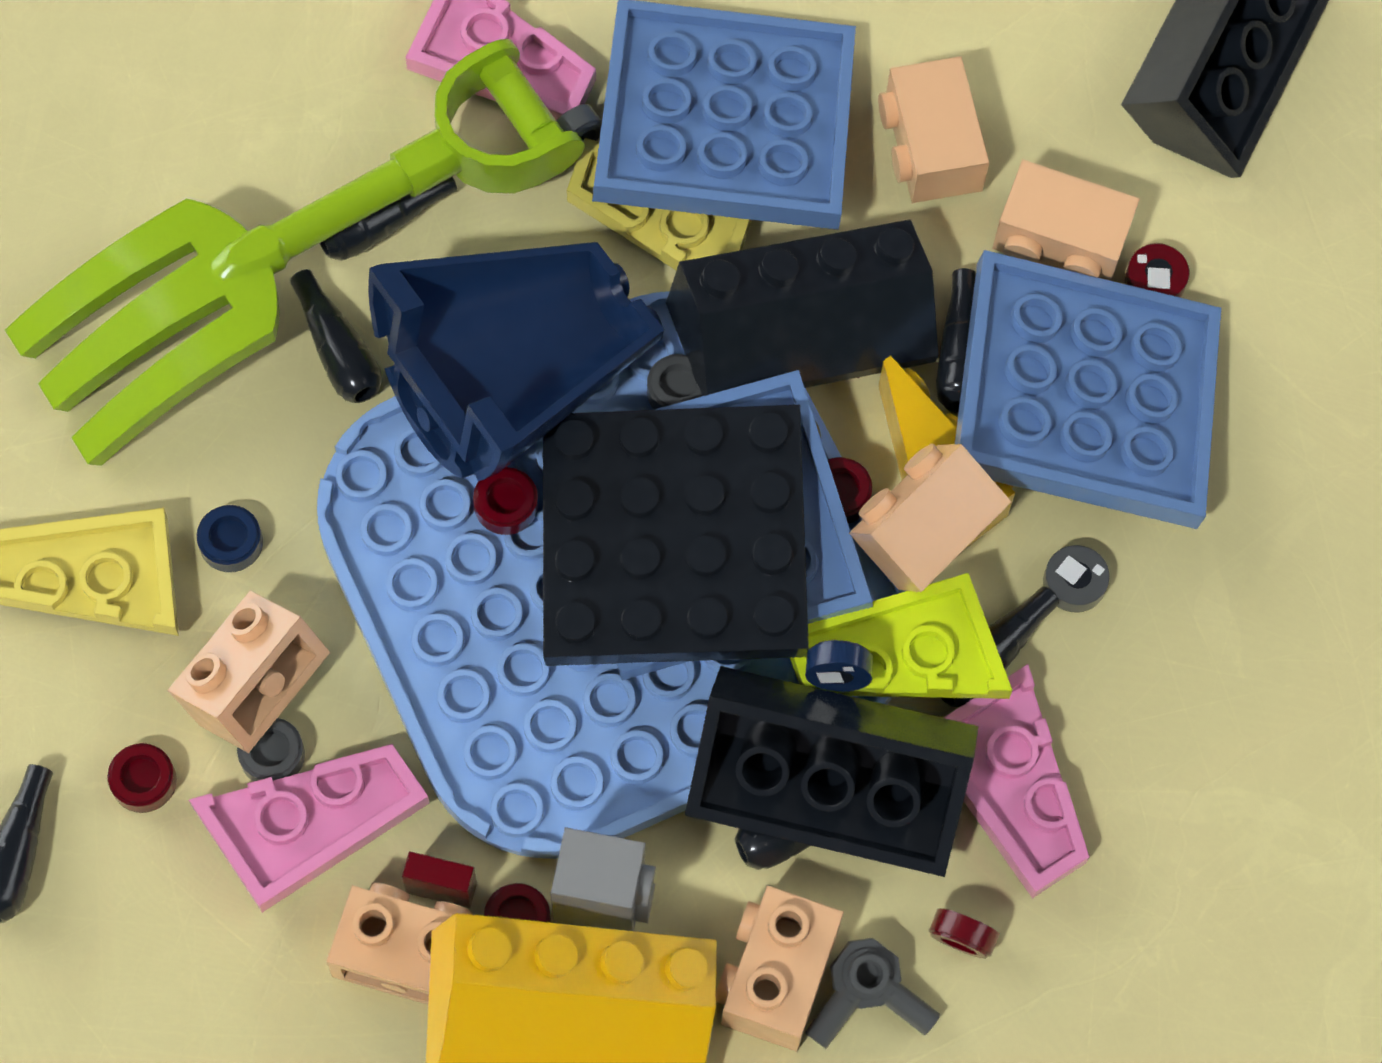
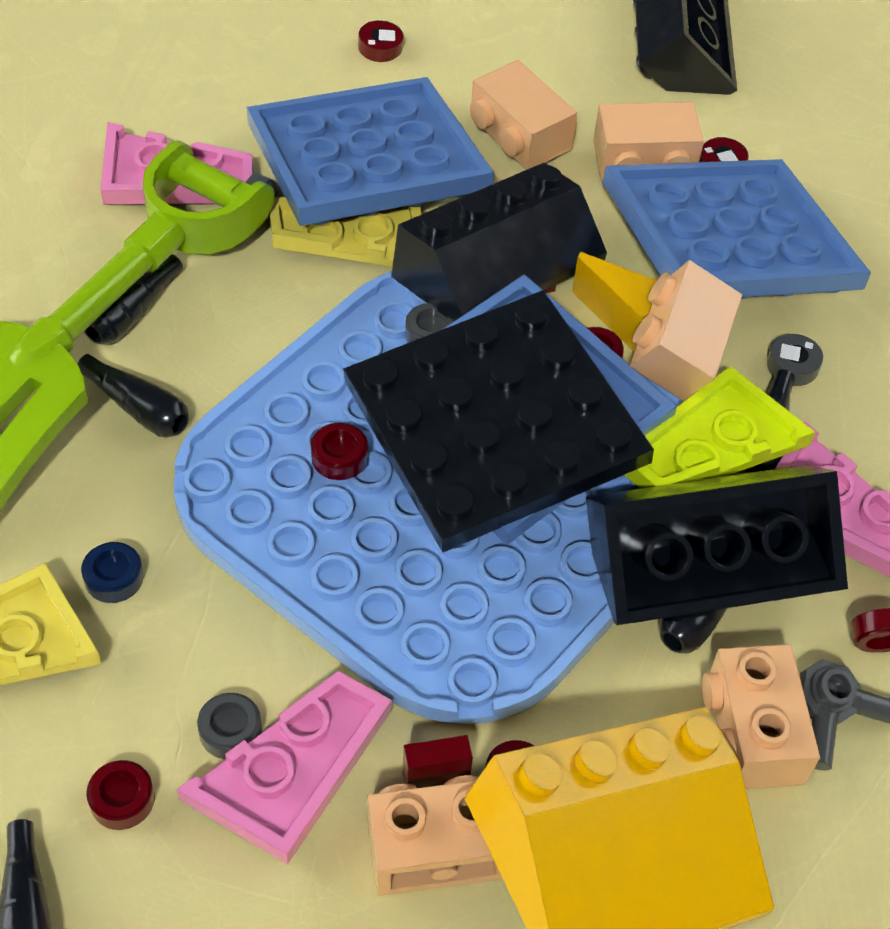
camera: 25 degrees left, 15 degrees down
(249, 671) = (183, 660): light nougat brick -> none
(504, 345) = (279, 338): dark blue cone -> none
(601, 882) = (584, 691): light grey brick -> none
(839, 666) = (683, 455): dark blue tile -> none
(955, 340) = (619, 240): black piece -> none

